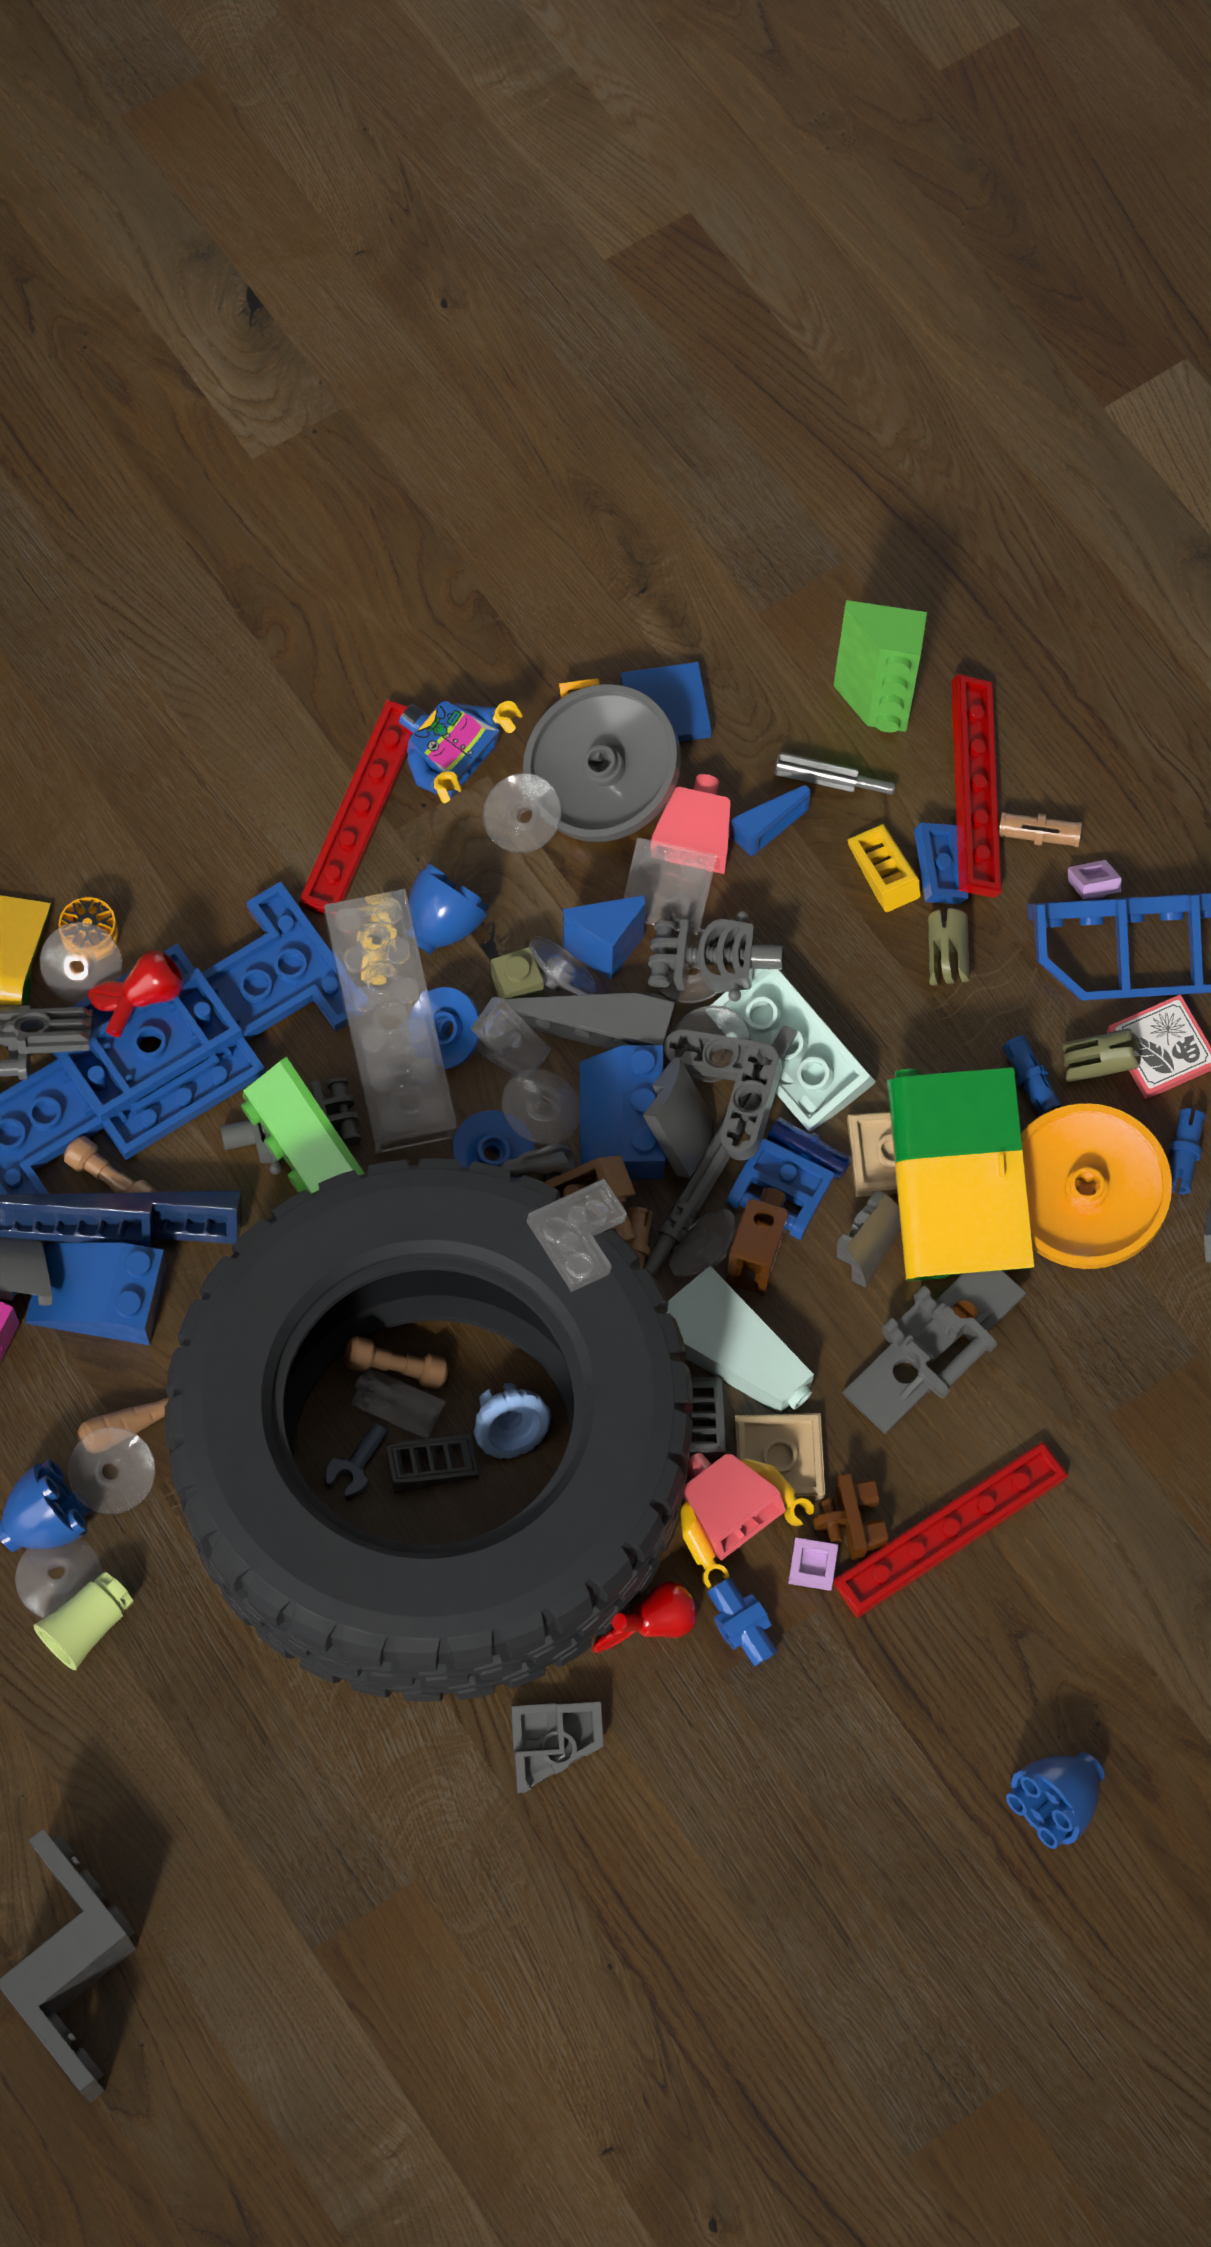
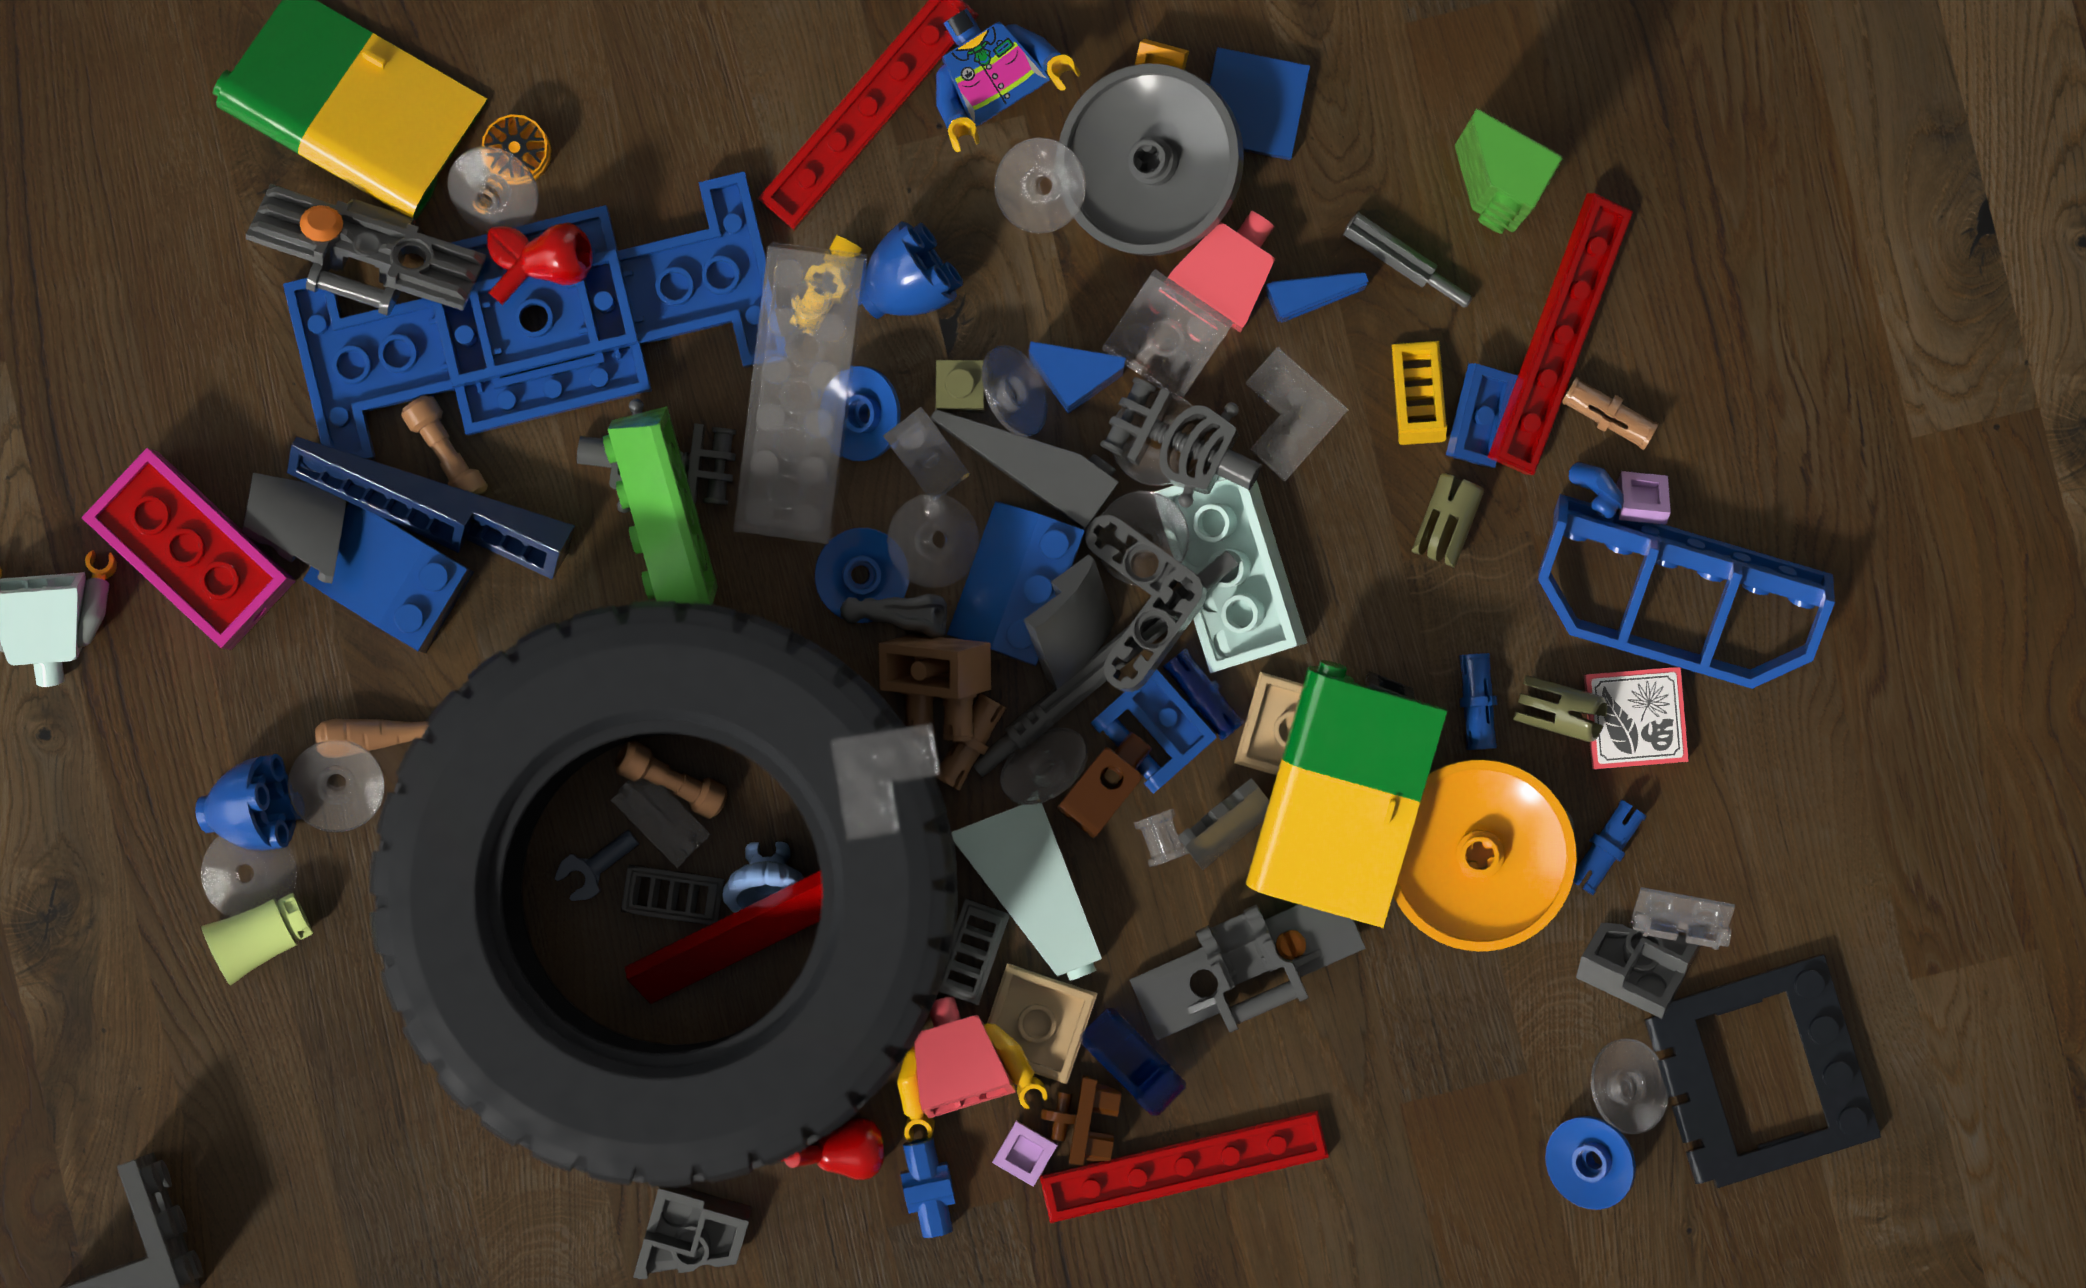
camera: 25 degrees right, 20 degrees up
(501, 1462) = (728, 940): none -> red tile
(797, 905) = (1304, 410): none -> clear plate
(822, 1269) = (1161, 837): none -> clear bush
(874, 1453) = (1133, 1061): none -> clear blue animal
(1058, 877) = (1599, 481): none -> blue arm

